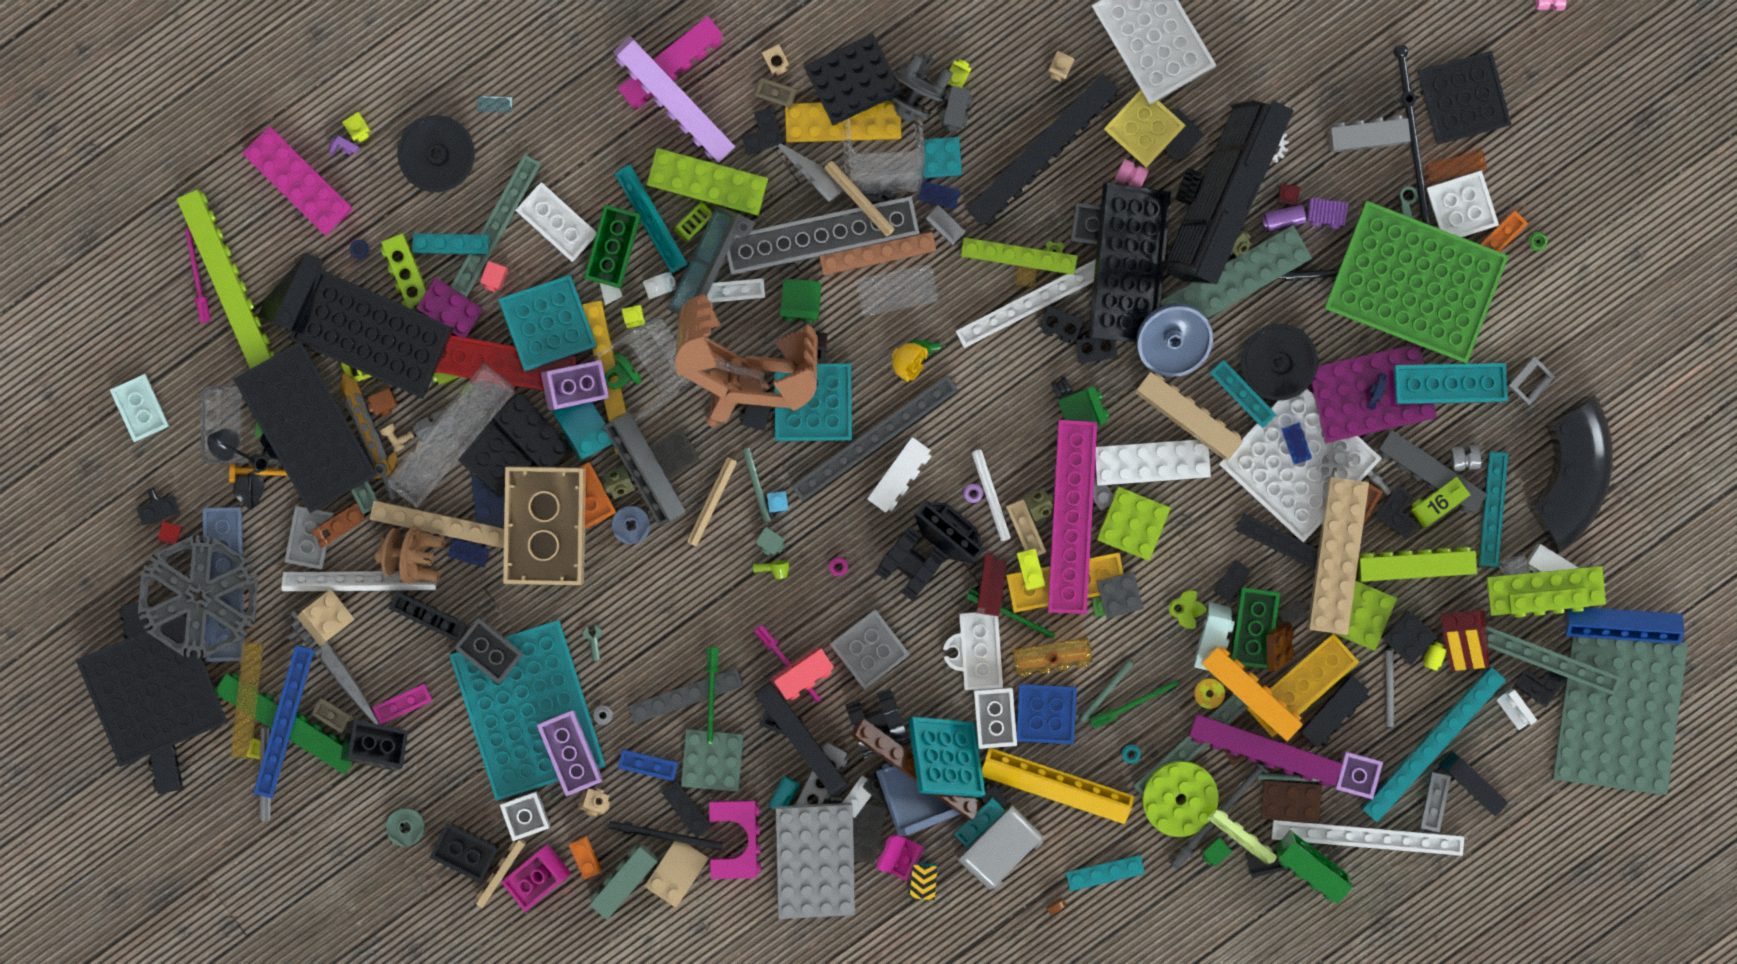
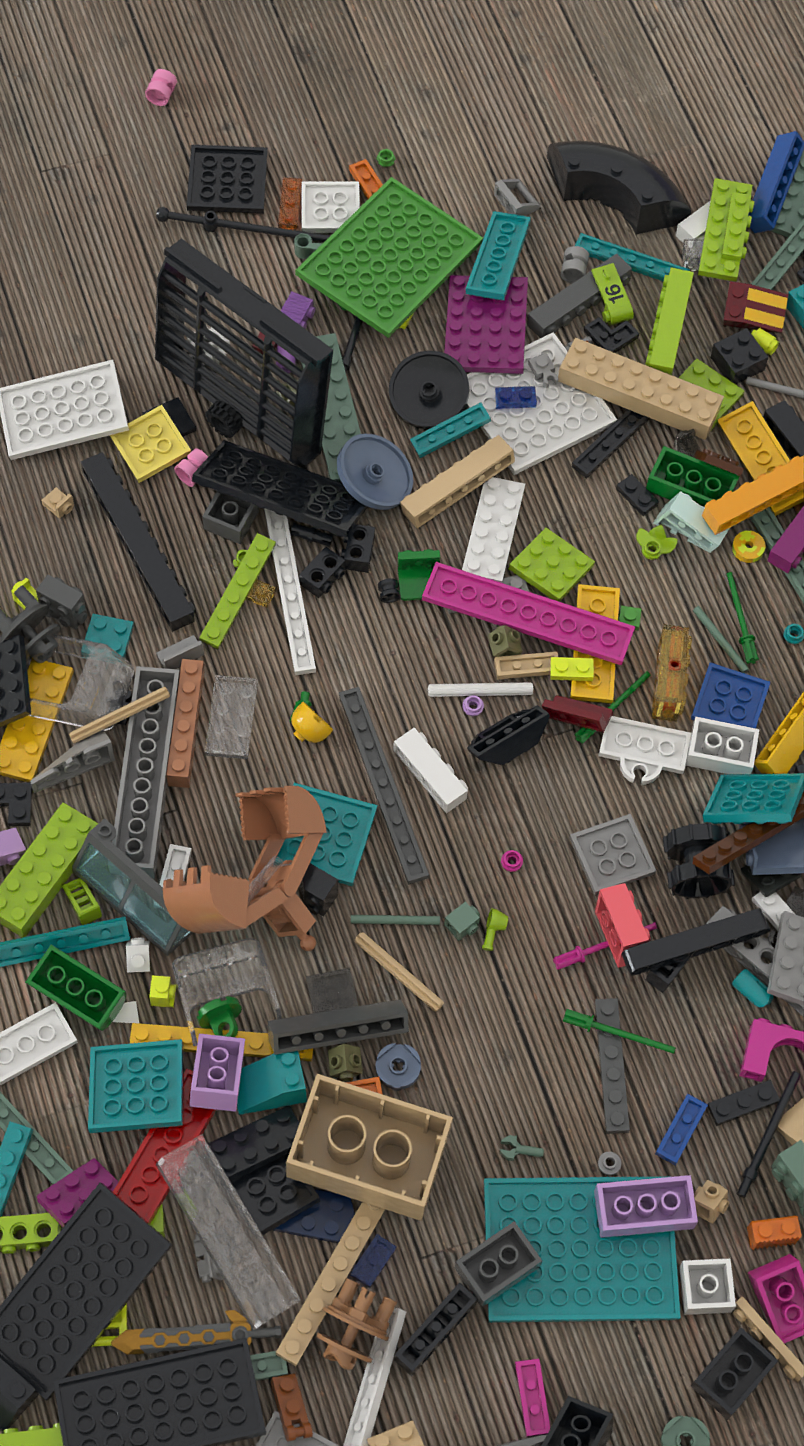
camera: 80 degrees left, 25 degrees down
(382, 402) = (162, 1308): dark orange brick -> none
(396, 442) = (215, 1306): tan piece -> none
(494, 276) = (60, 1128): coral brick -> none
(712, 765) = (698, 1058): sand green plate -> none
(777, 501) = (420, 903): medium azure plate -> none
(800, 300) = (208, 814): green bracket -> none
(911, 563) = (541, 770): black piece -> none
(939, 195) = (146, 648): clear blue plate -> none
(1120, 594) = (623, 593): dark grey plate -> none
(1368, 135) = (235, 244): light grey brick -> none
(1376, 390) = (486, 311): dark blue plate -> none

